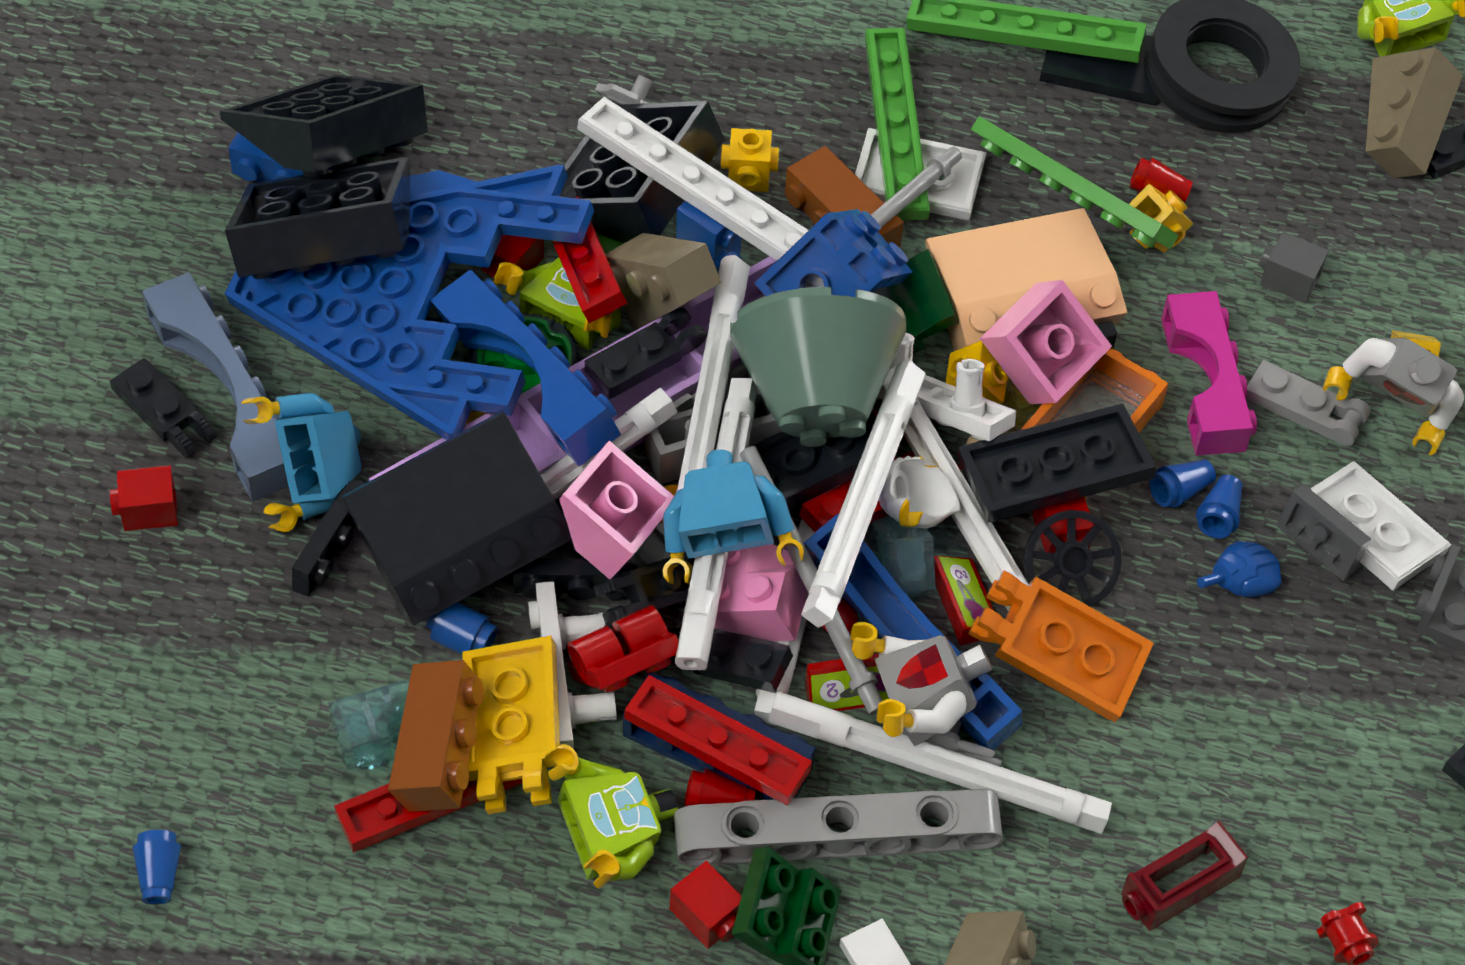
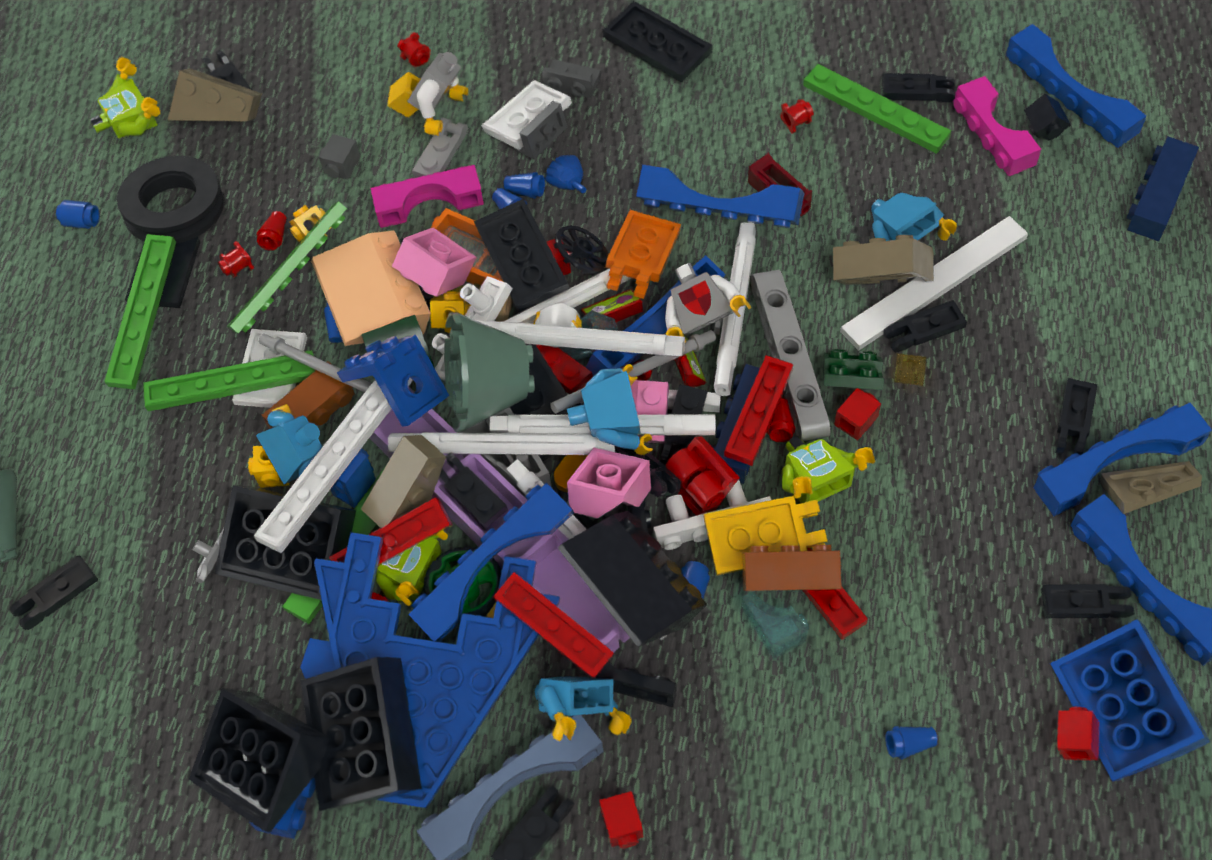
camera: 90 degrees left, 5 degrees up
(407, 417) = (553, 625): none -> red plate
(764, 150) = (290, 443): none -> dark azure torso
(1106, 135) = (235, 261): none -> red brick
(1185, 697) = (773, 203): none -> blue arch

